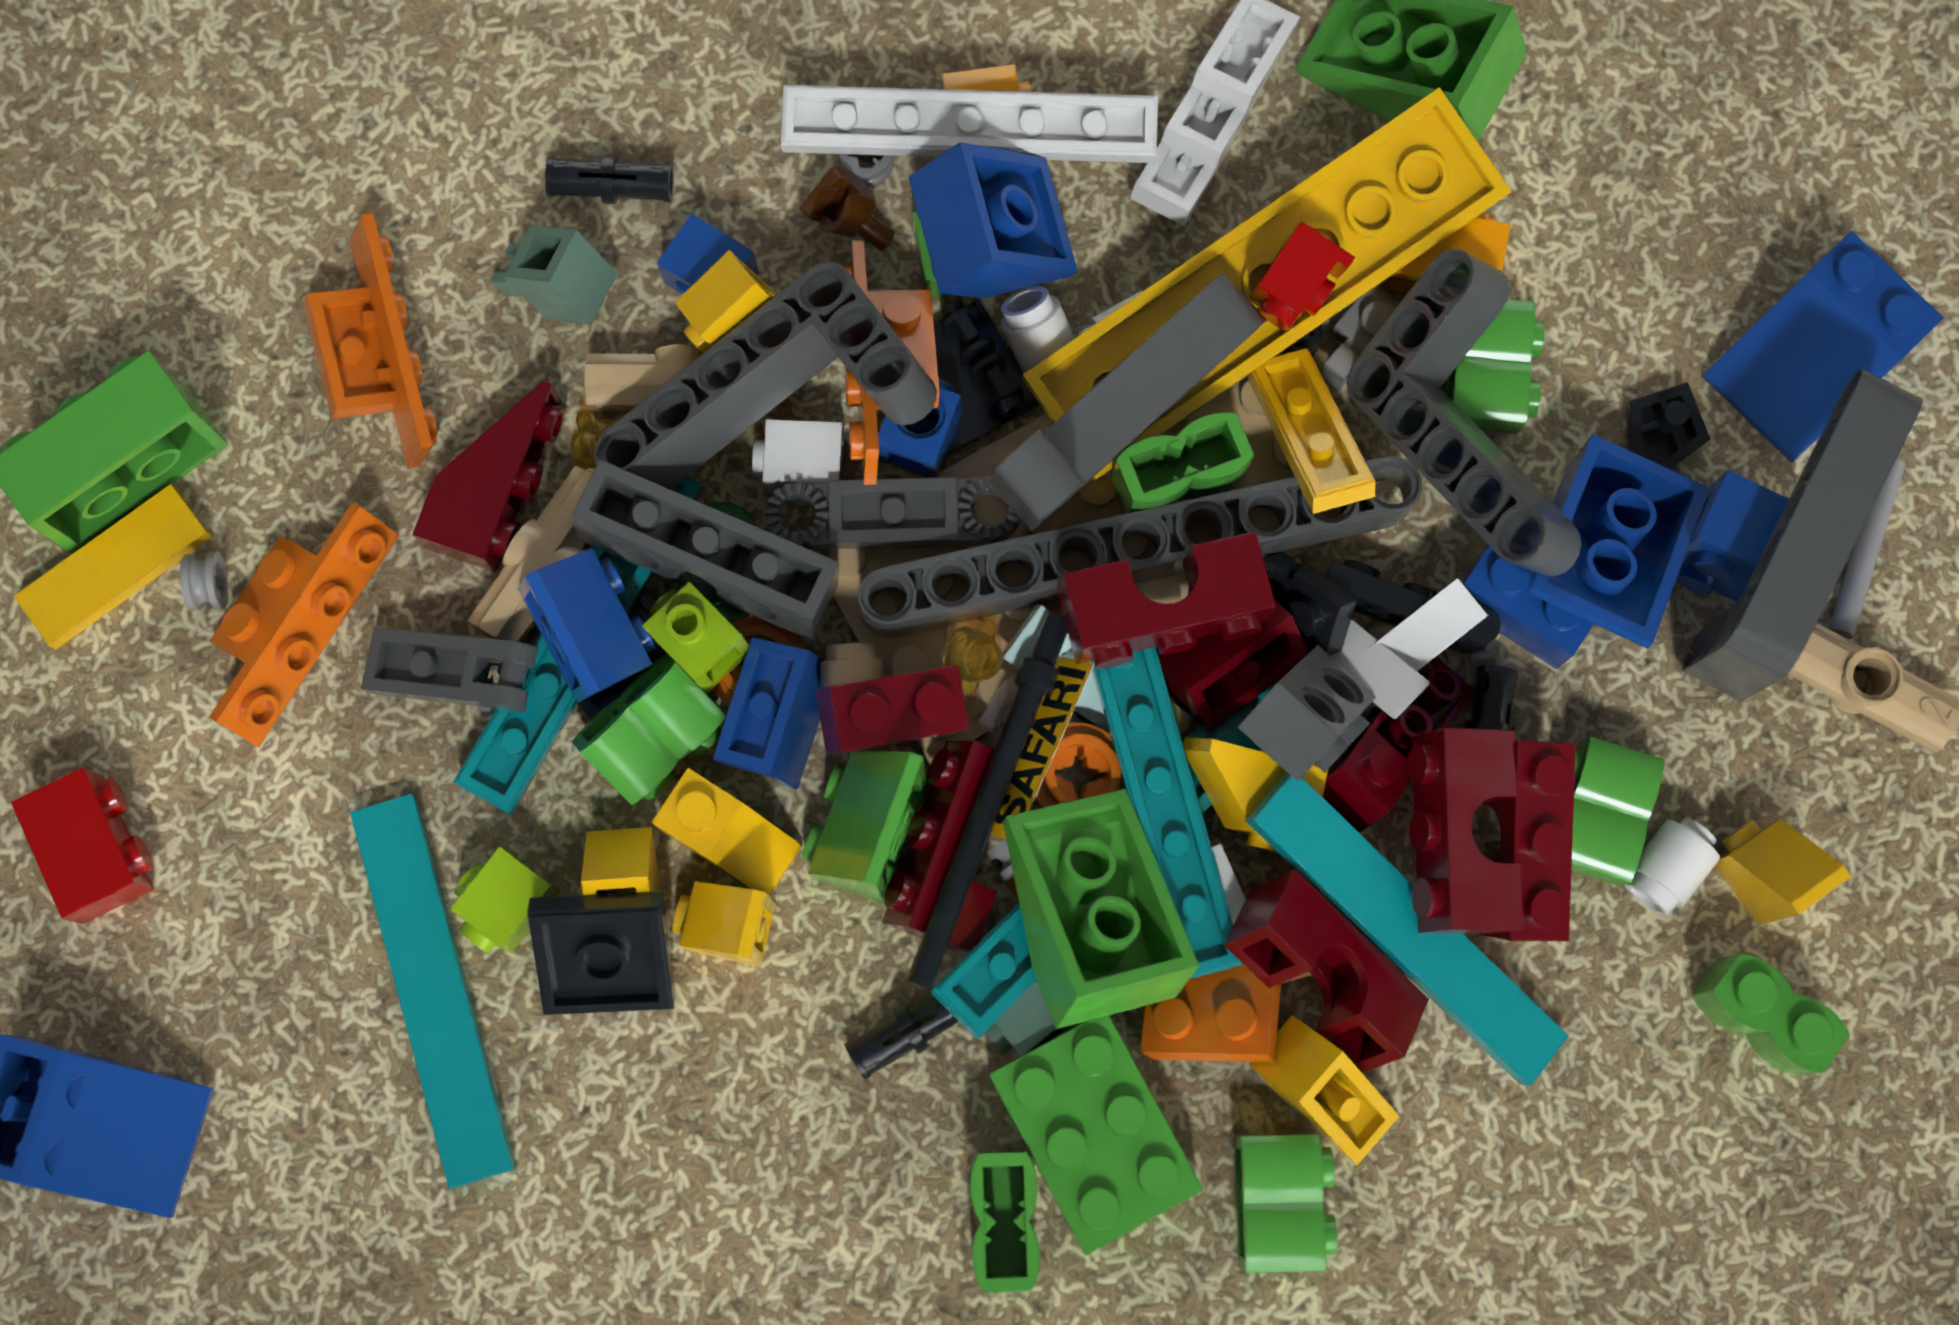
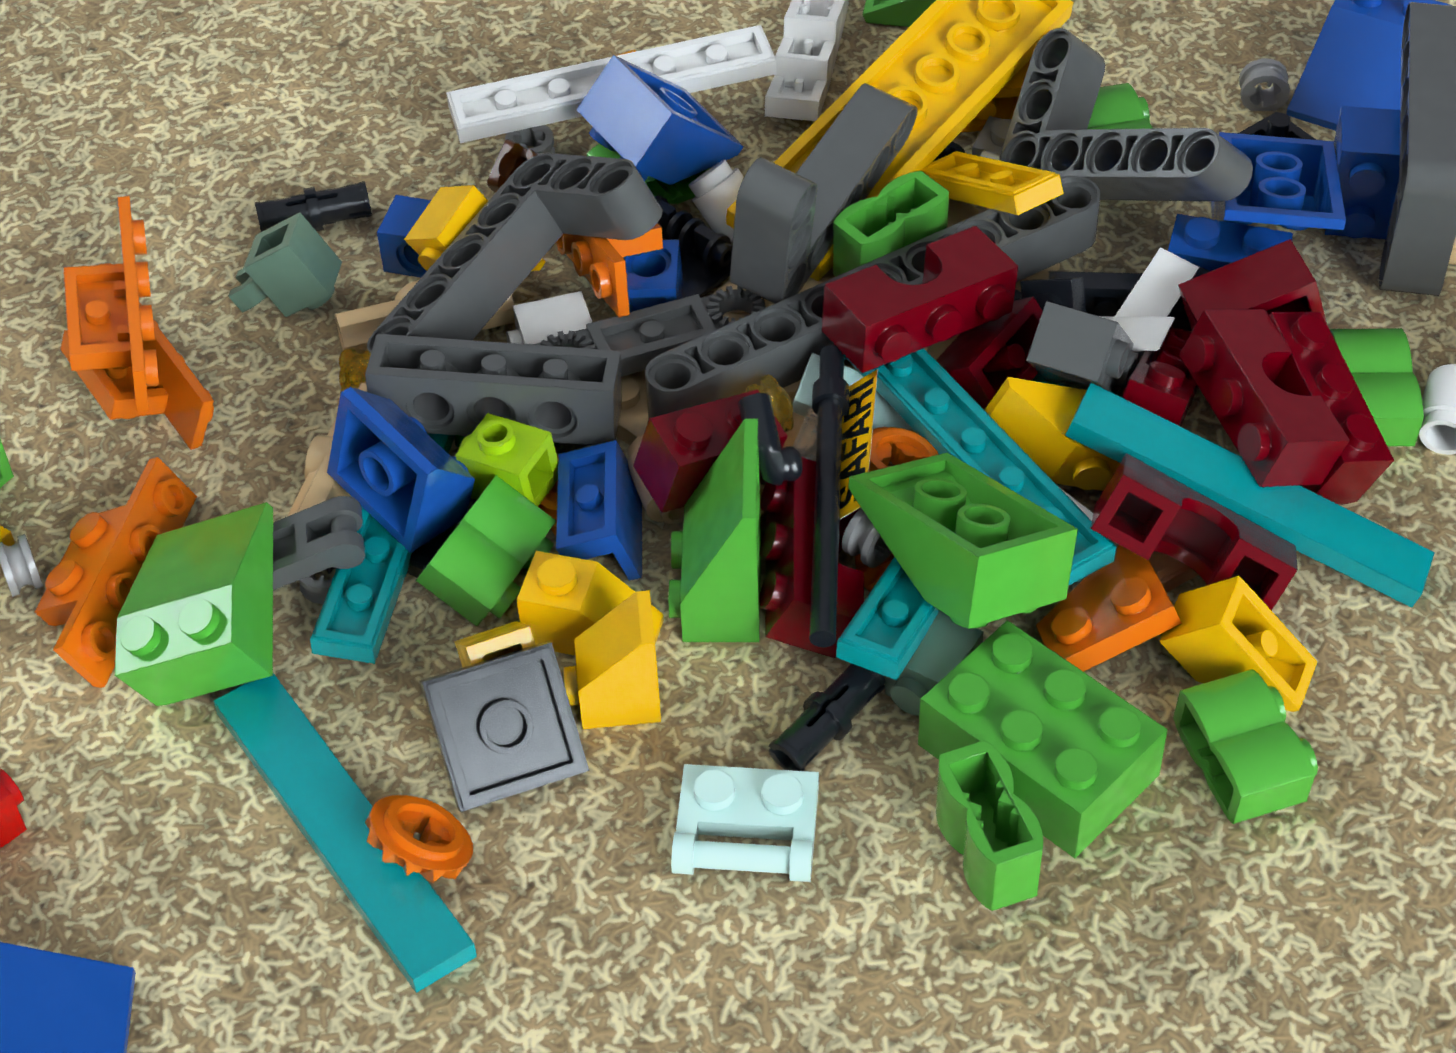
camera: 15 degrees left, 30 degrees down
(347, 302) = (105, 312): none -> orange bracket
(357, 709) = (200, 609): none -> bright green slope
(481, 491) = (267, 429): dark red slope -> none
(496, 901) = (387, 724): lime brick -> none
(519, 1038) = (443, 842): none -> orange gear
(807, 1098) = (746, 806): none -> light aqua plate
(935, 743) = (775, 463): none -> black arm
(1298, 277) = (933, 73): red brick -> none
(1518, 688) = (1265, 280): none -> dark red brick
(1691, 339) = (1264, 71): none -> light grey bush

